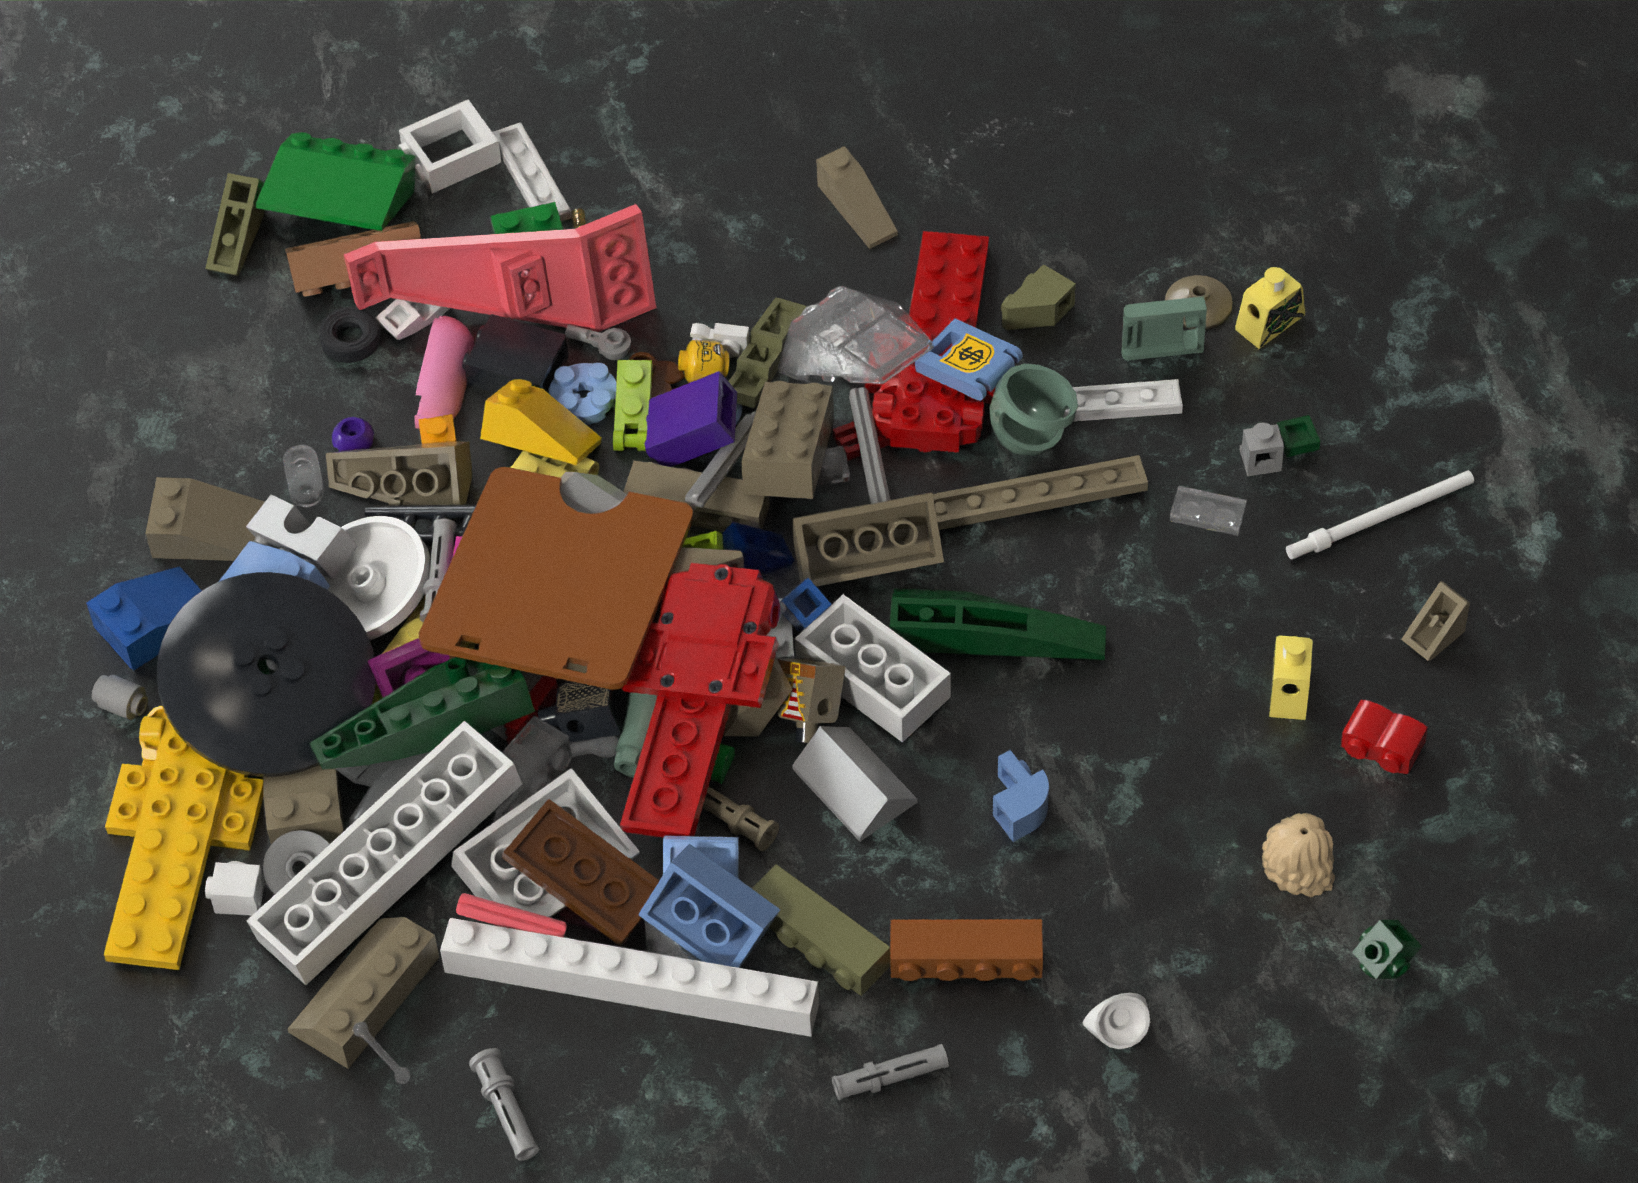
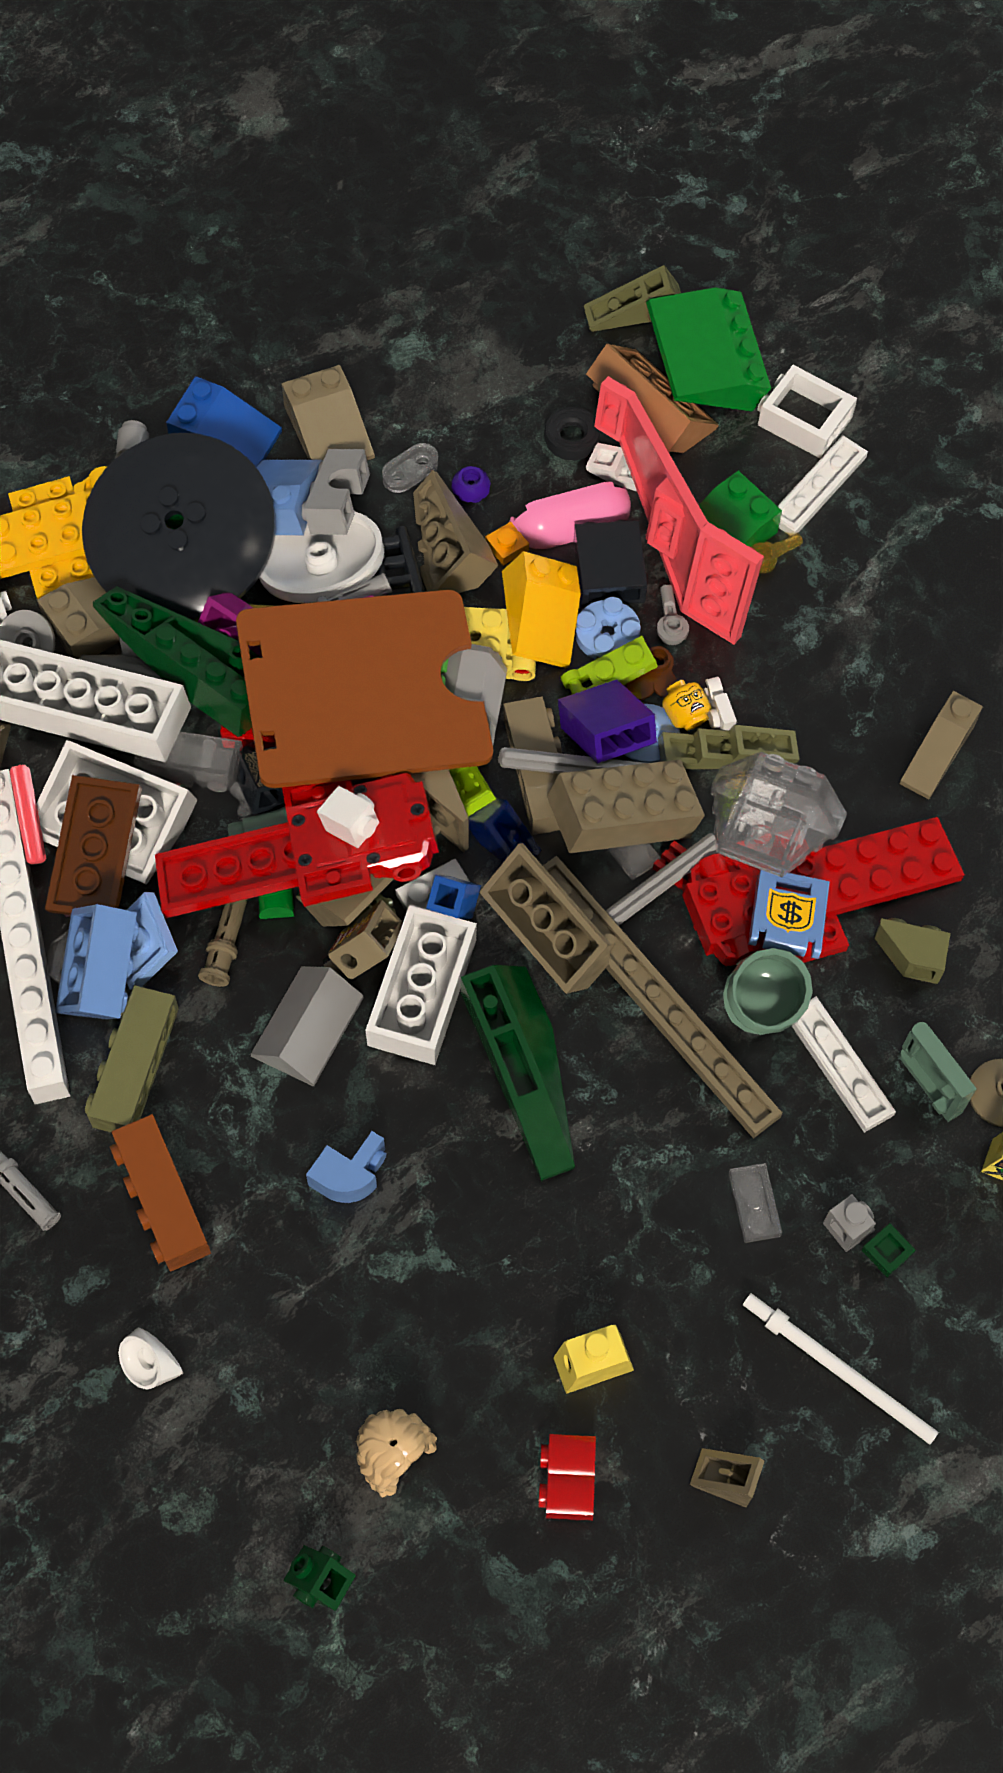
camera: 60 degrees right, 10 degrees up
(703, 623) = (348, 816): none -> white brick

